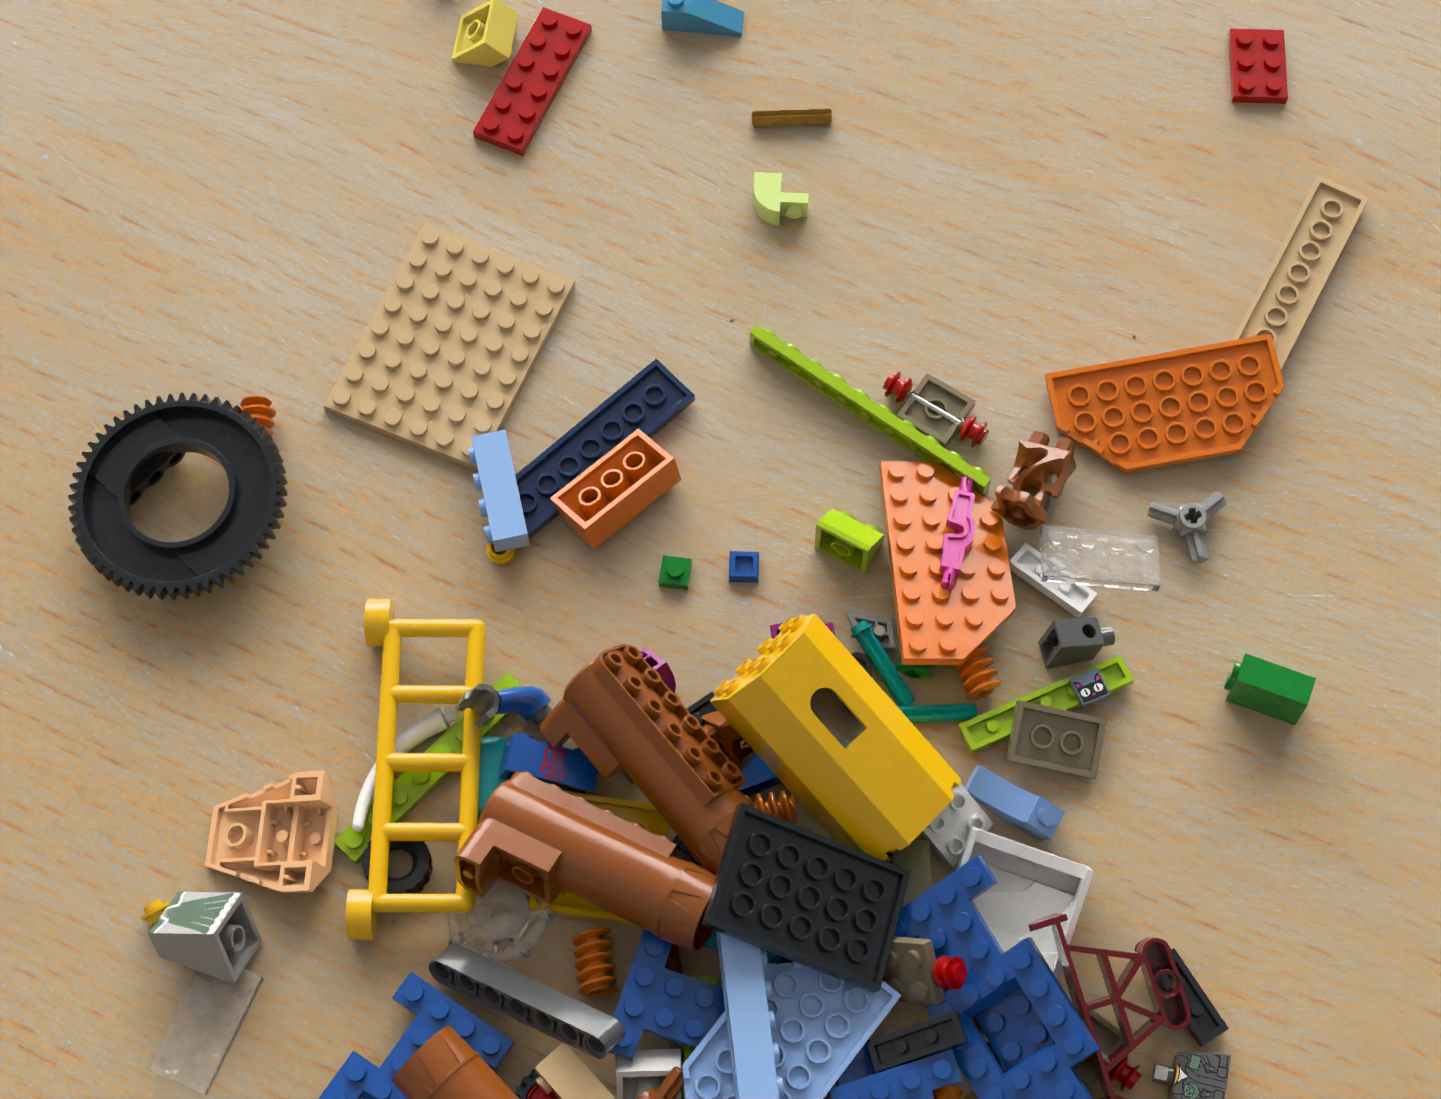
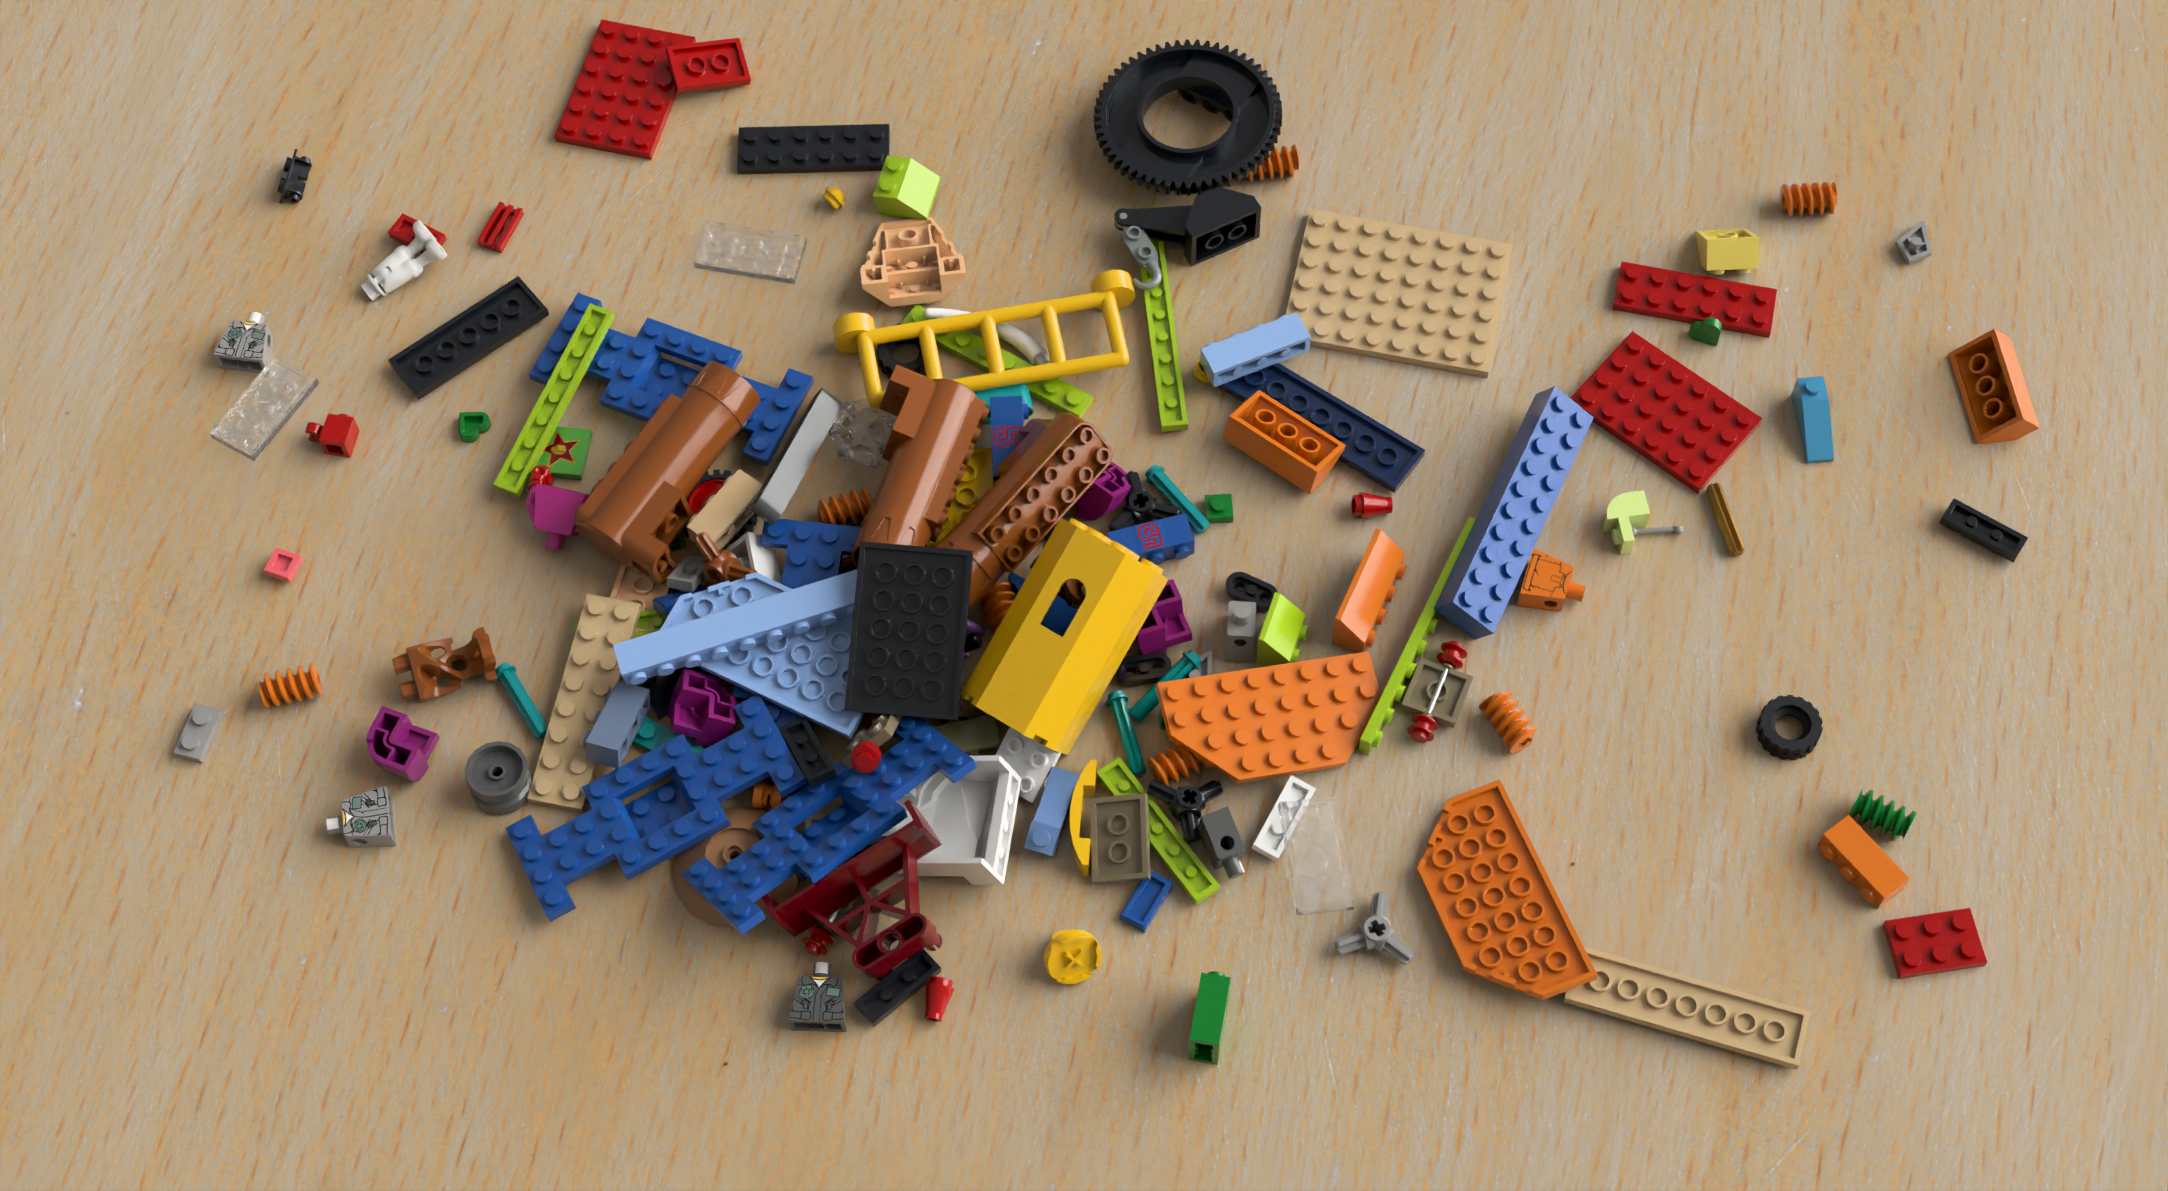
camera: 80 degrees right, 5 degrees down
(73, 929) = (812, 148): none -> black plate
(172, 825) = (905, 189): none -> lime slope
(207, 933) = (817, 231): light grey slope -> none
(321, 524) = (1209, 227): none -> black slope
(421, 583) = (1164, 347): none -> lime plate
(525, 701) = (1056, 390): piece -> none
(577, 77) = (1706, 331): none -> green tile
(656, 138) = (1666, 412): none -> red plate
(656, 610) = (1157, 477): none -> teal axle
(668, 637) = (1137, 498): none -> black bush
(707, 425) = (1370, 505): none -> red cone
(708, 644) = (1158, 539): none -> blue brick
(744, 566) = (1237, 560): blue tile -> none
(755, 290) = (1514, 513): none -> brick
(783, 559) = (1253, 590): none -> black plate
(792, 161) = (1677, 529): none -> light grey hinge
(816, 447) = (1368, 594): none -> orange slope
(833, 284) = (1548, 583): none -> orange torso
(834, 576) = (1240, 626): none -> light grey torso
(957, 544) = (1287, 716): piece -> none
(981, 349) = (1508, 721): none -> orange piece
(1024, 668) = (1186, 804): none -> black bush
(1027, 101) = (1793, 707): none -> black tyre
(1042, 463) = (1392, 786): dark orange hips -> none
(1059, 783) = (1084, 788): none -> yellow slope
(1089, 688) = (1177, 860): tile -> none
(1123, 732) = (1146, 902): none -> blue tile
(1133, 68) = (1882, 815): none -> green piece
(1174, 97) = (1862, 862): none -> orange brick
(1181, 812) = (1072, 956): none -> yellow tile
(1204, 957) = (937, 997): none -> red cone

